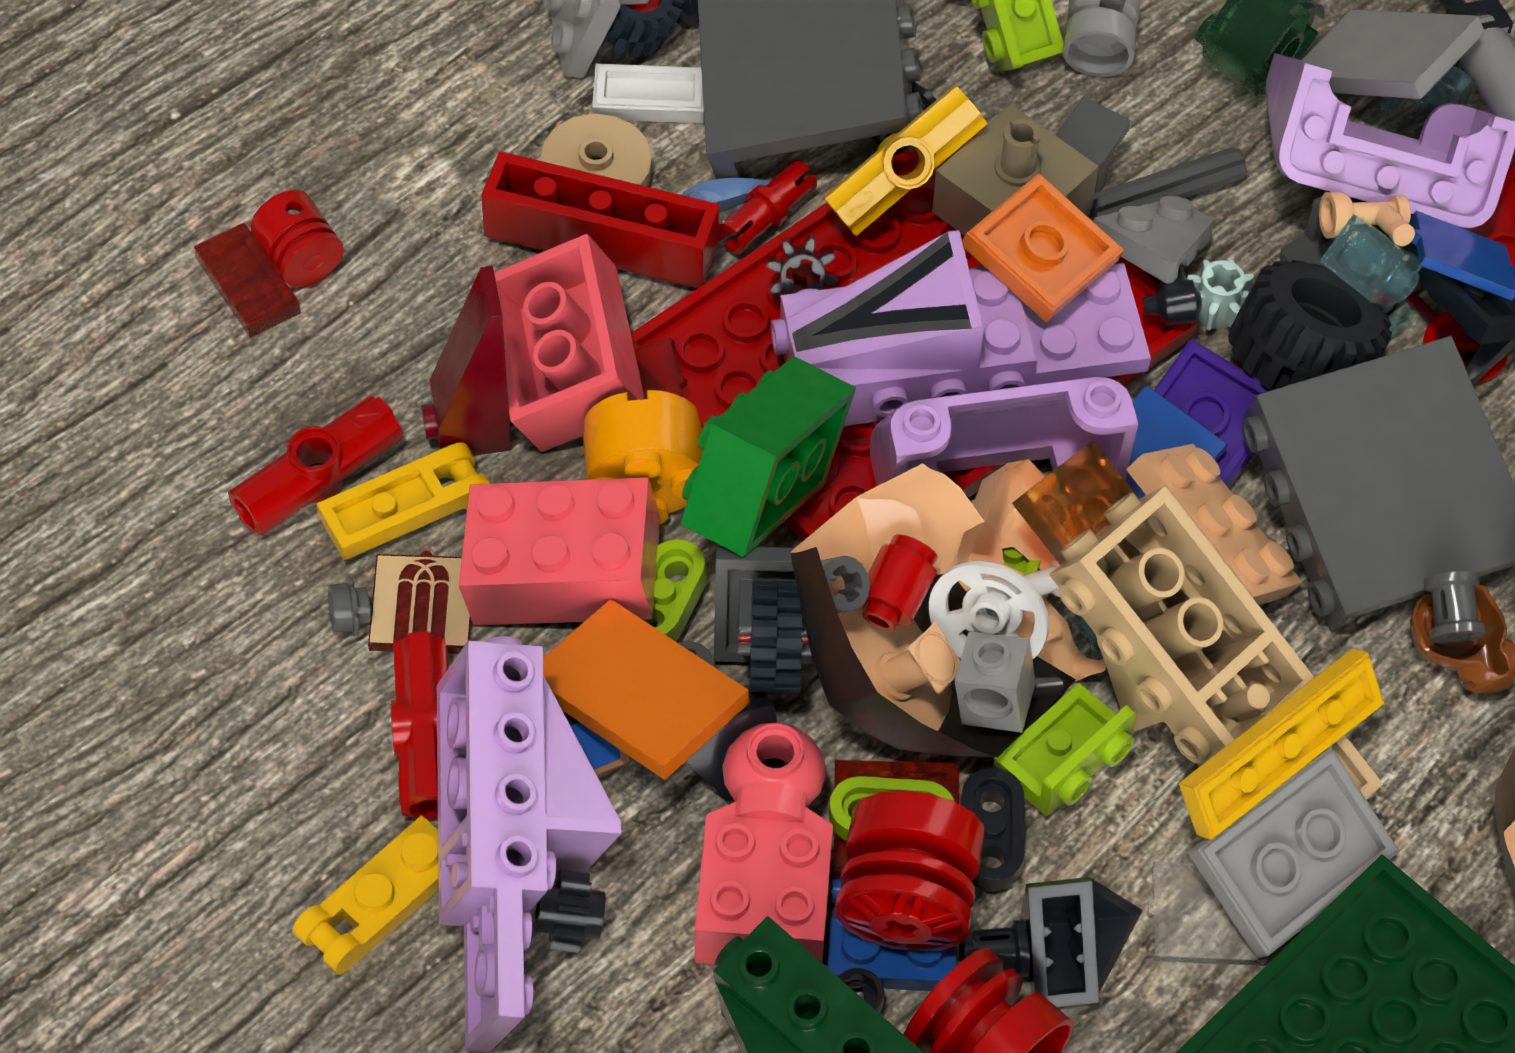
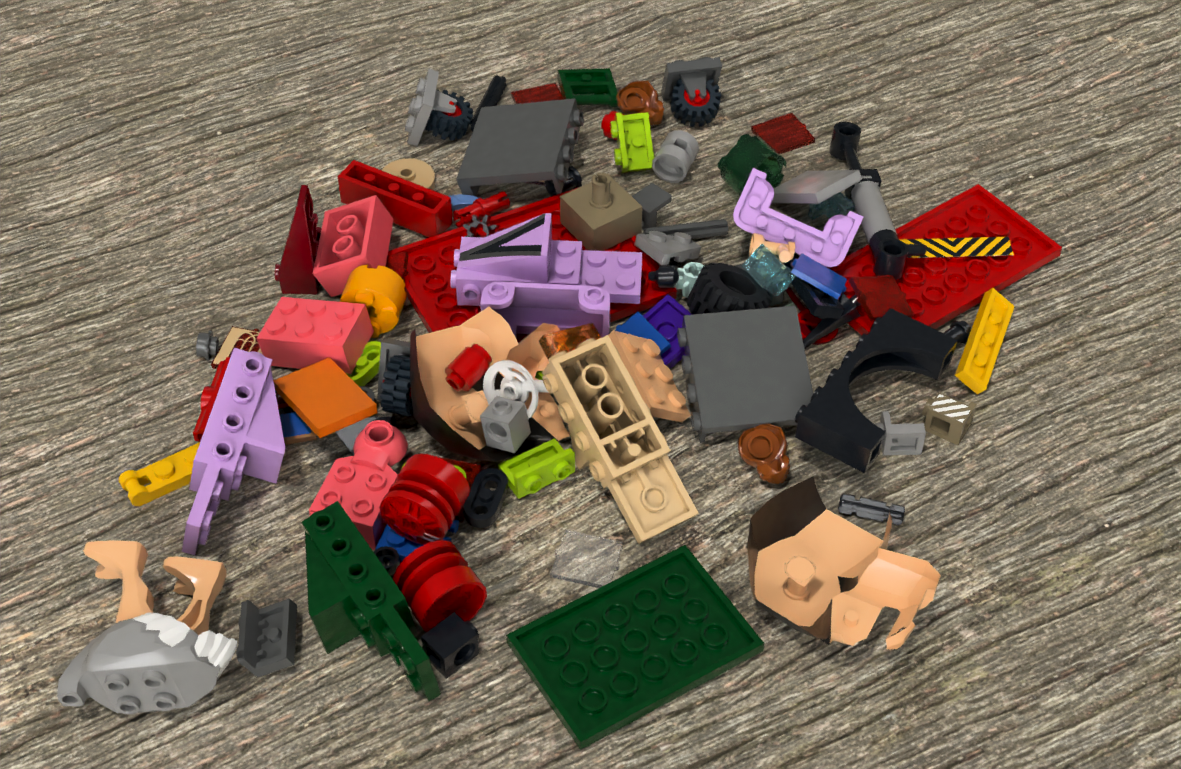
camera: 15 degrees right, 10 degrees down
(247, 280) = (221, 203): clear red tile -> none
(290, 481) = (217, 281): red piece -> none
(298, 244) = (248, 188): red piece -> none
(400, 500) = (249, 303): yellow plate -> none
(571, 912) = (255, 494): black gear -> none
(649, 93) = (441, 154): white tile -> none
(766, 455) = (422, 298): green brick -> none
(855, 581) = (437, 351): dark grey bush -> none
(933, 133) = (530, 201): yellow piece -> none
(1007, 943) = (471, 551): black bush -> none
(1042, 247) = (598, 234): orange tile -> none
(1074, 937) = (509, 553): black slope -> none
(1281, 744) = (641, 476): yellow tile -> none
(1293, 853) = (635, 533): light grey tile -> none
(1454, 606) = (759, 432): dark grey bush -> none

